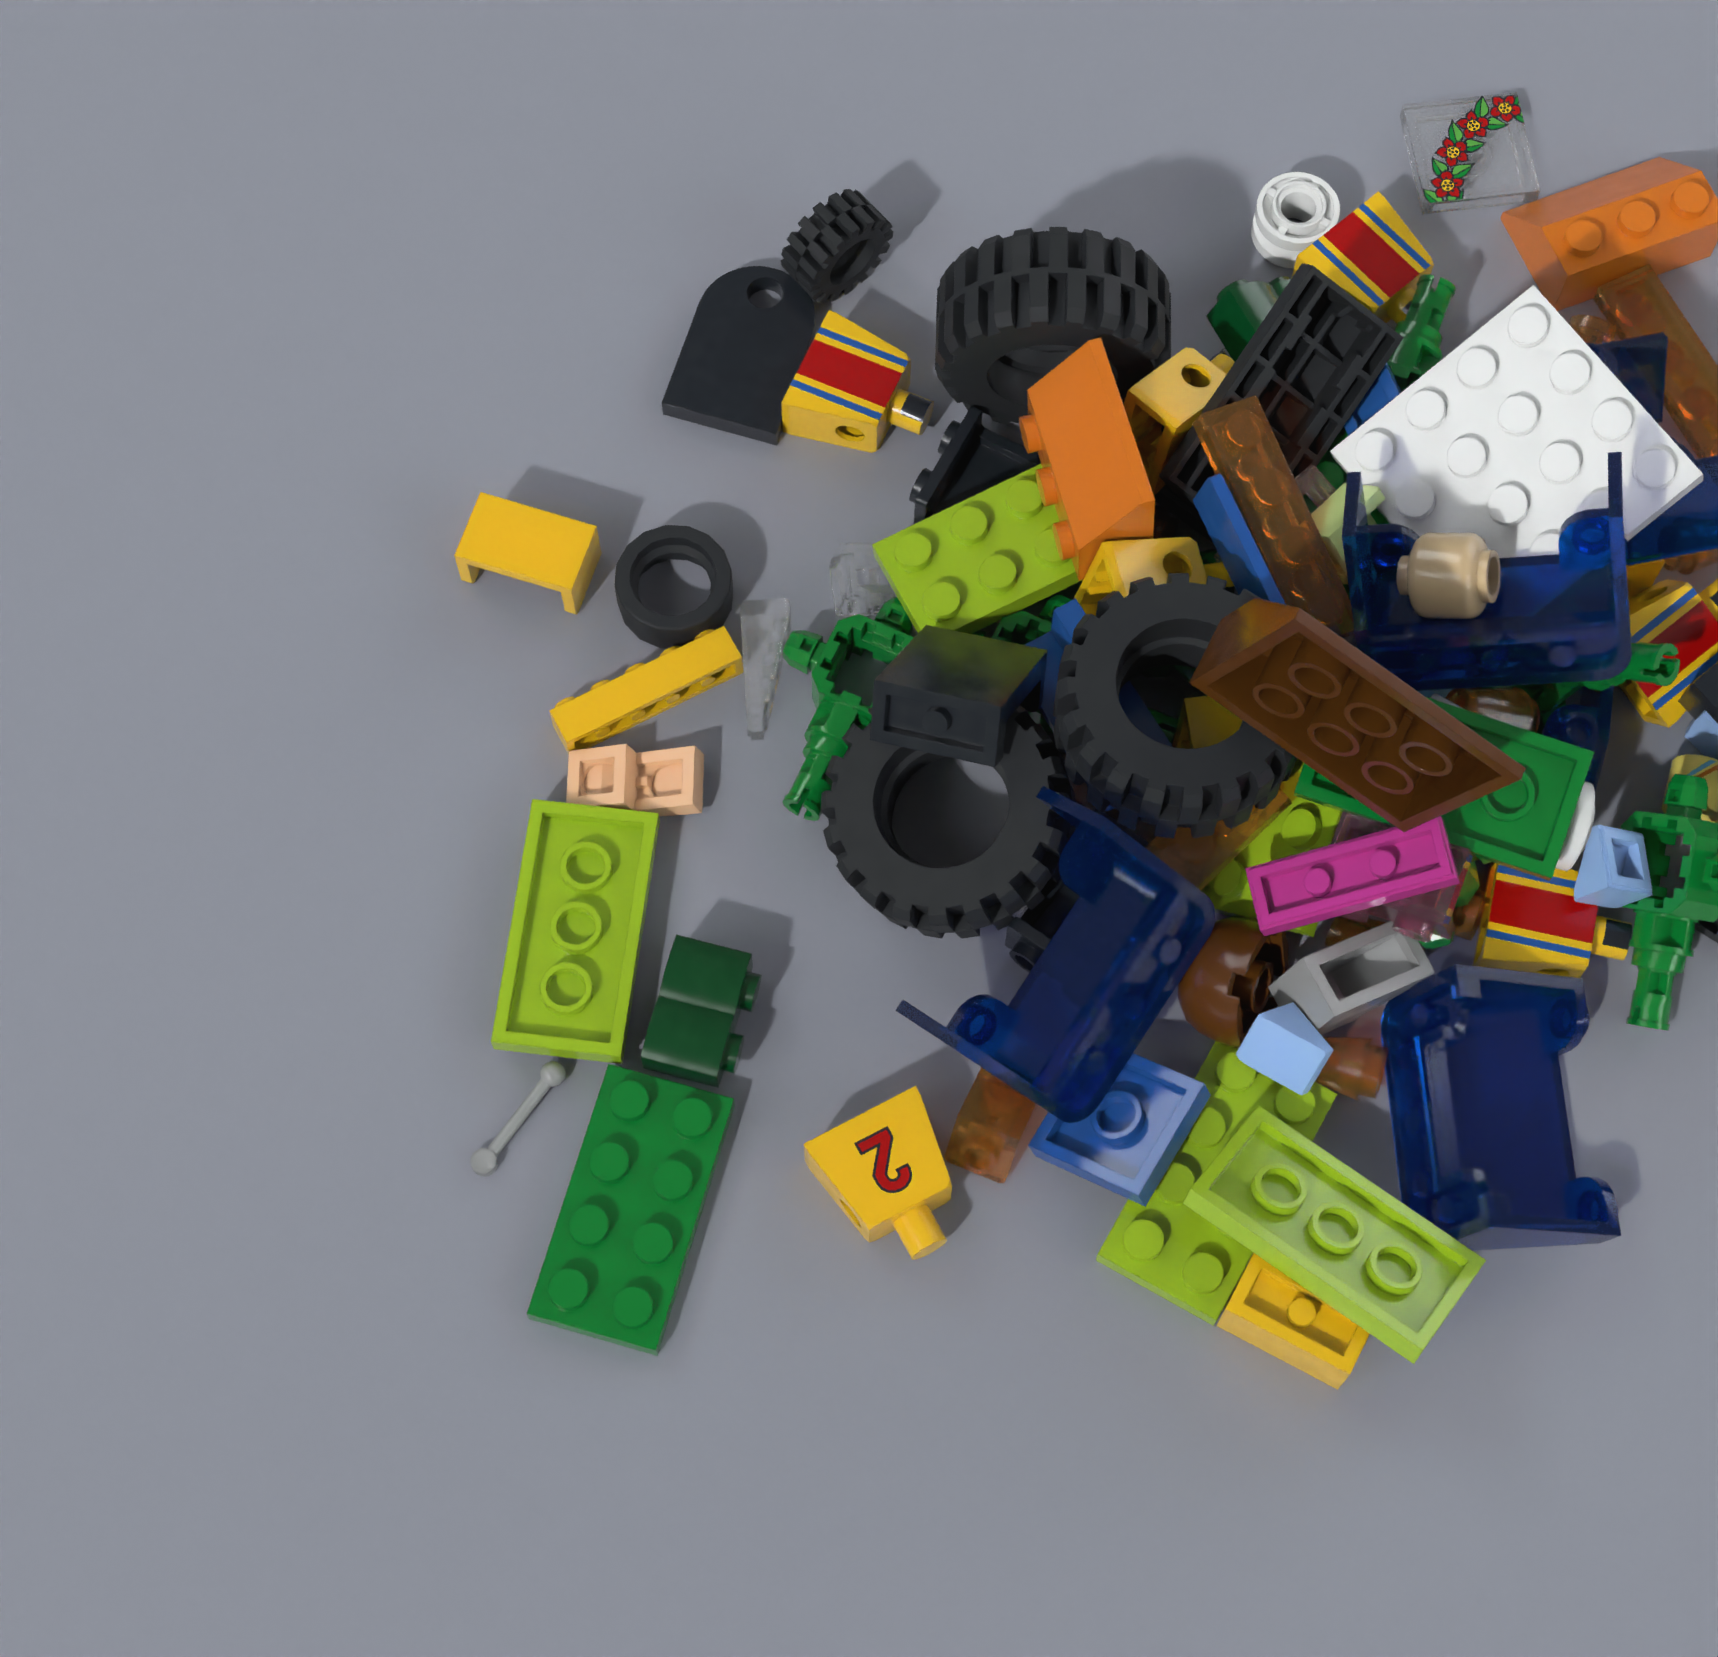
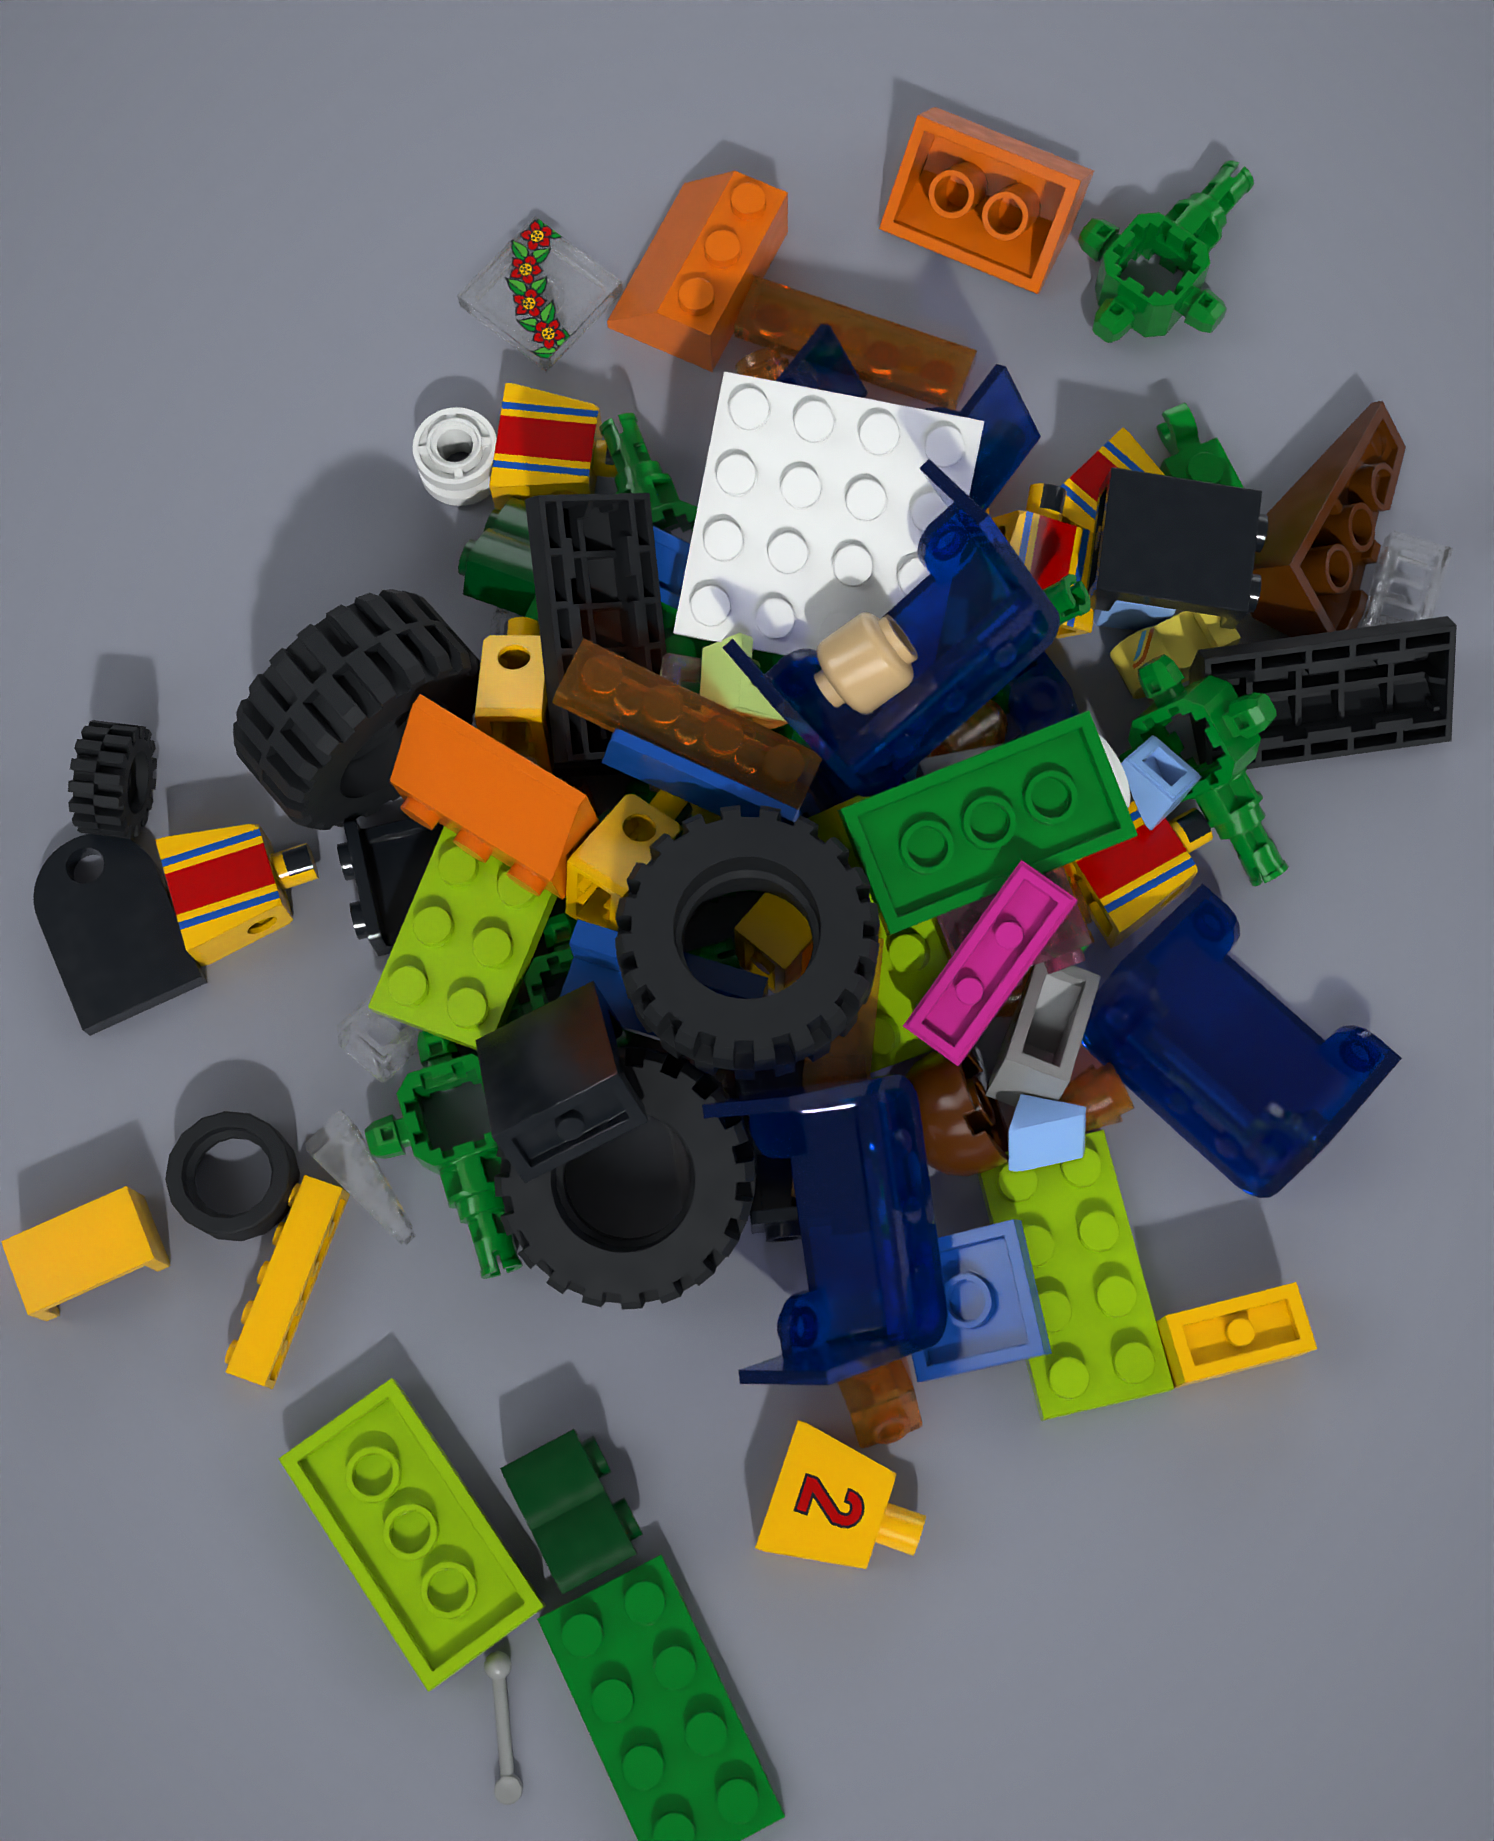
camera: 40 degrees left, 5 degrees up
(646, 781) = (346, 1364): light nougat slope -> none
(1335, 1233) = (1212, 1250): lime plate -> none
(1347, 715) = (902, 854): reddish brown slope -> none

